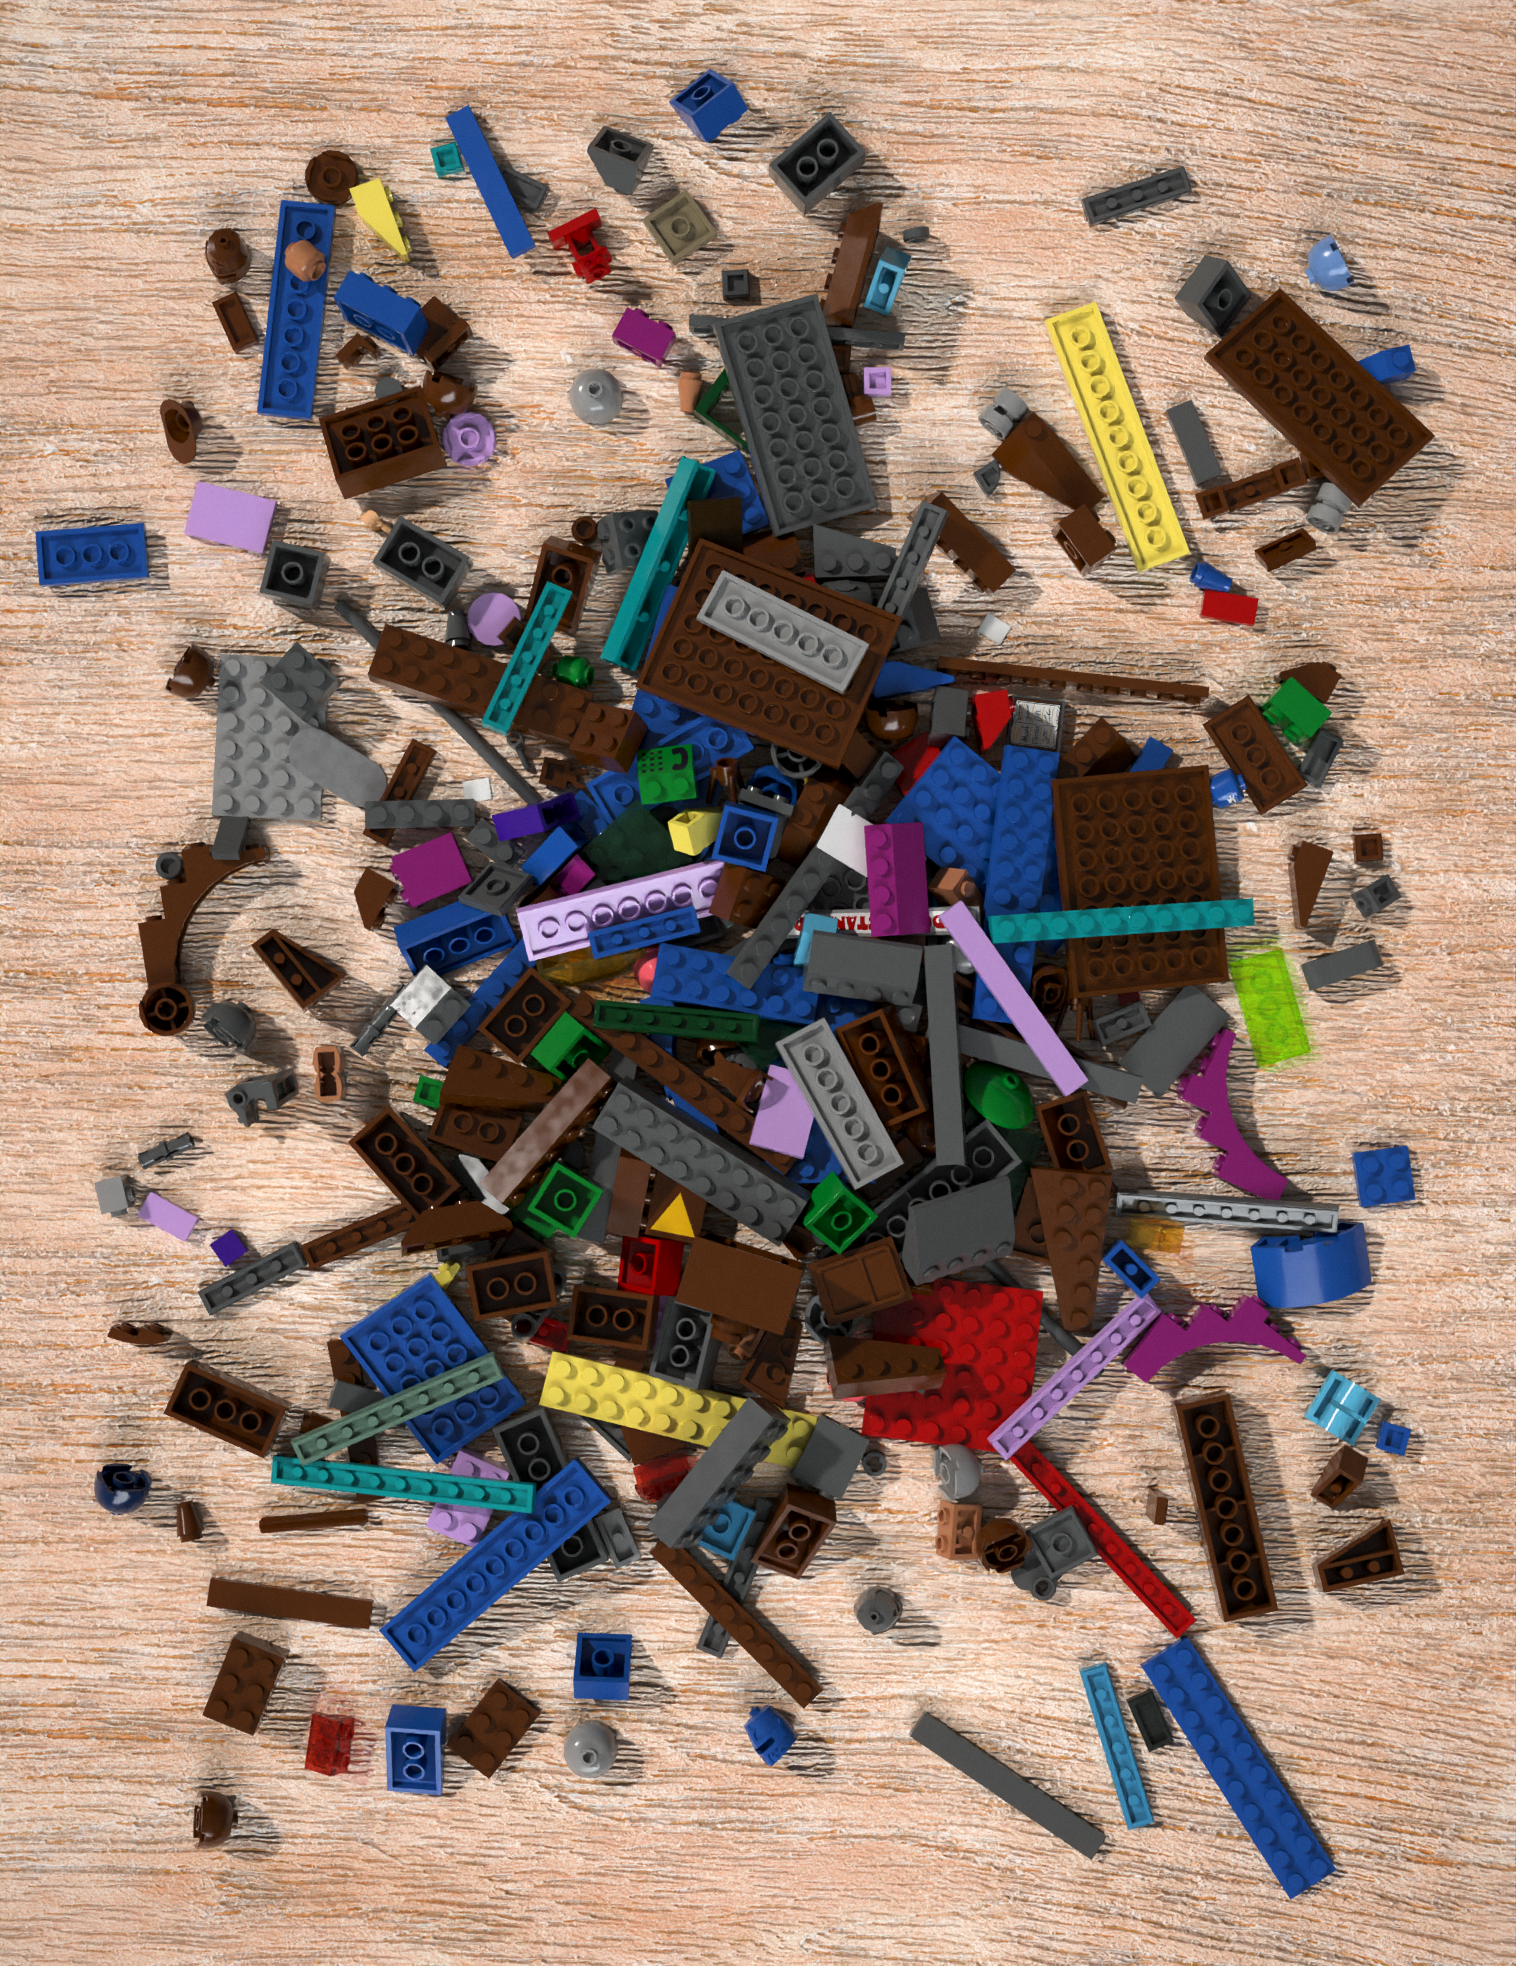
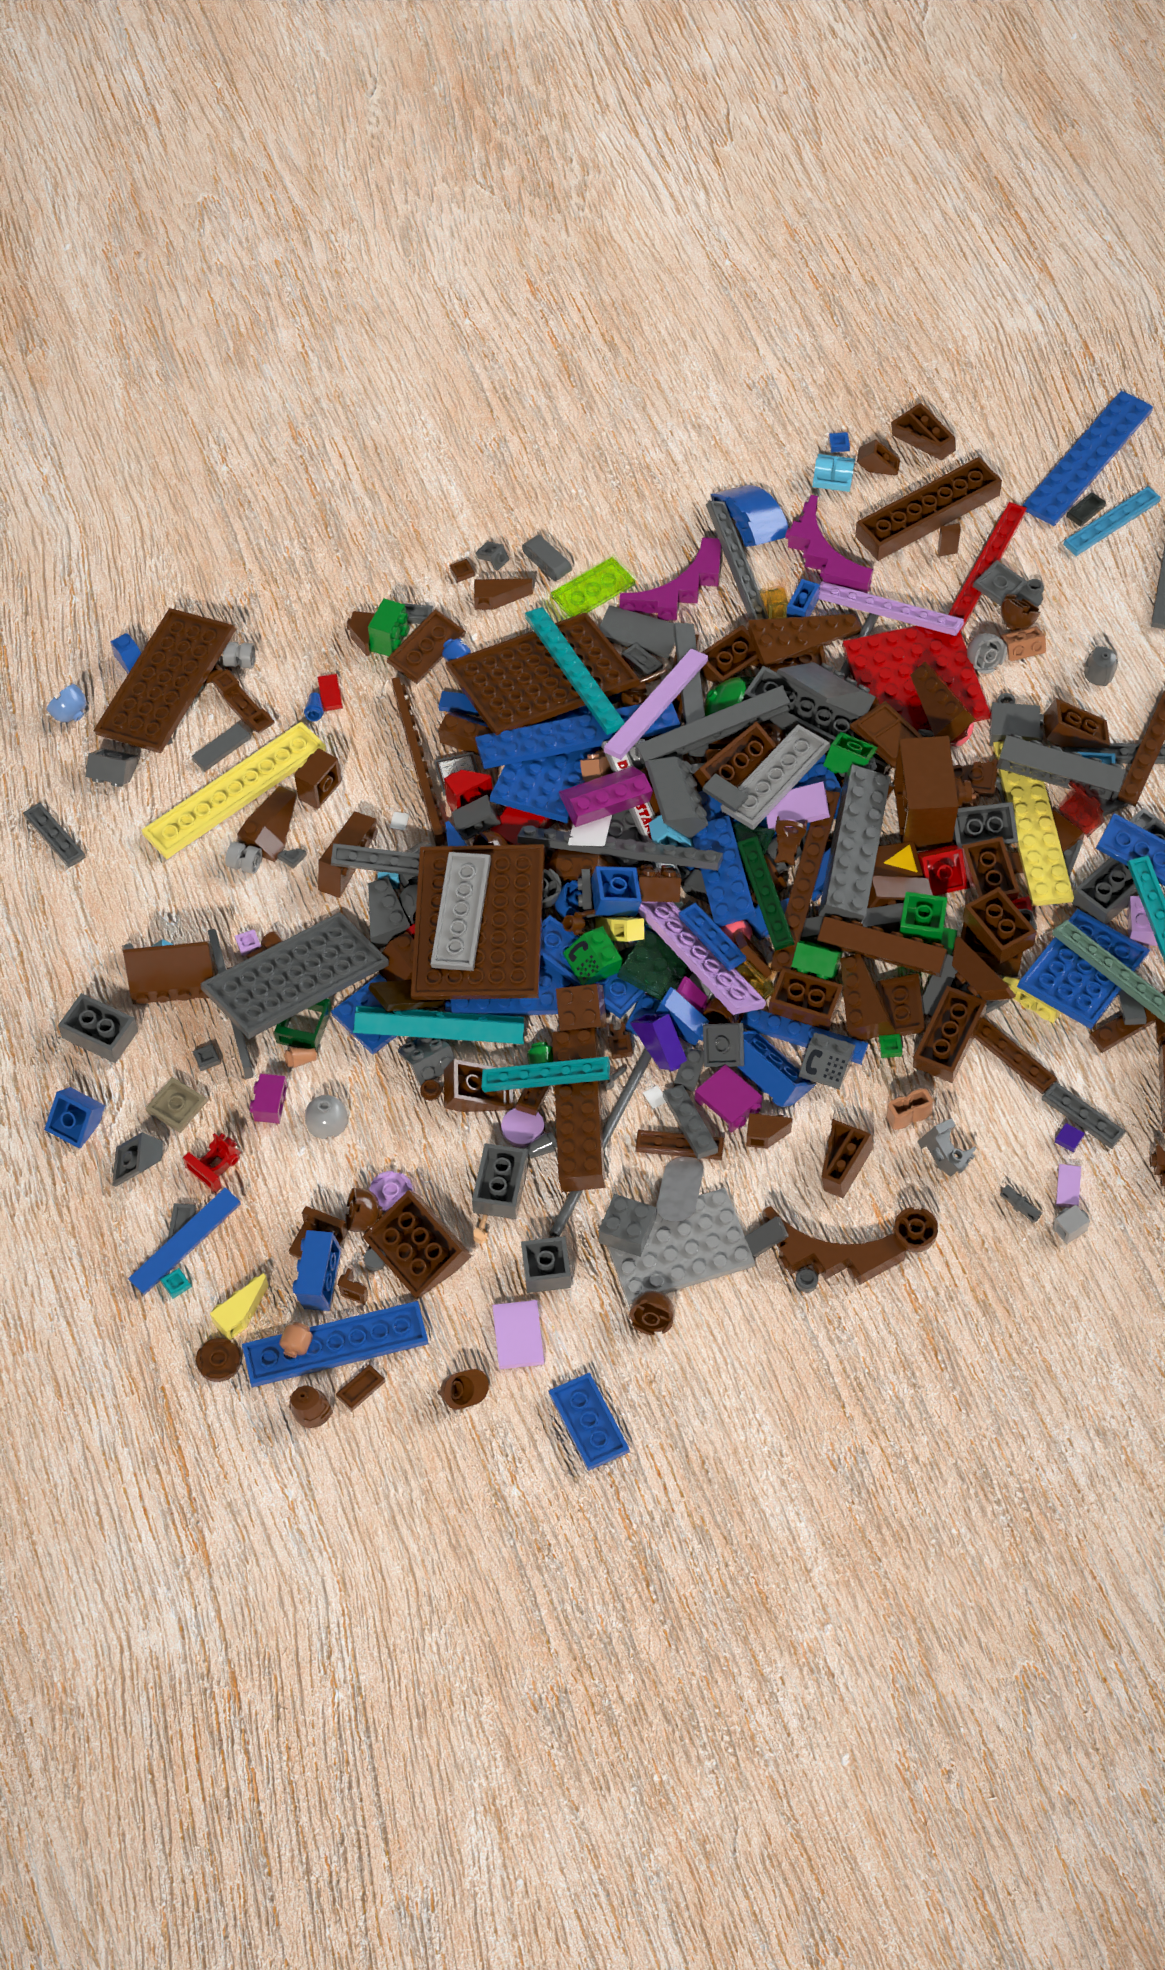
camera: 105 degrees left, 30 degrees down
(230, 1024) = (905, 1187): dark grey cylinder -> none
(378, 1024) = (851, 1094): dark grey pin -> none
(607, 974) = (752, 953): none -> reddish brown tile
(834, 1027) = (725, 793): none -> dark grey tile
(1285, 549) = (277, 671): reddish brown plate -> none
(1383, 1176) = (674, 498): blue plate -> none

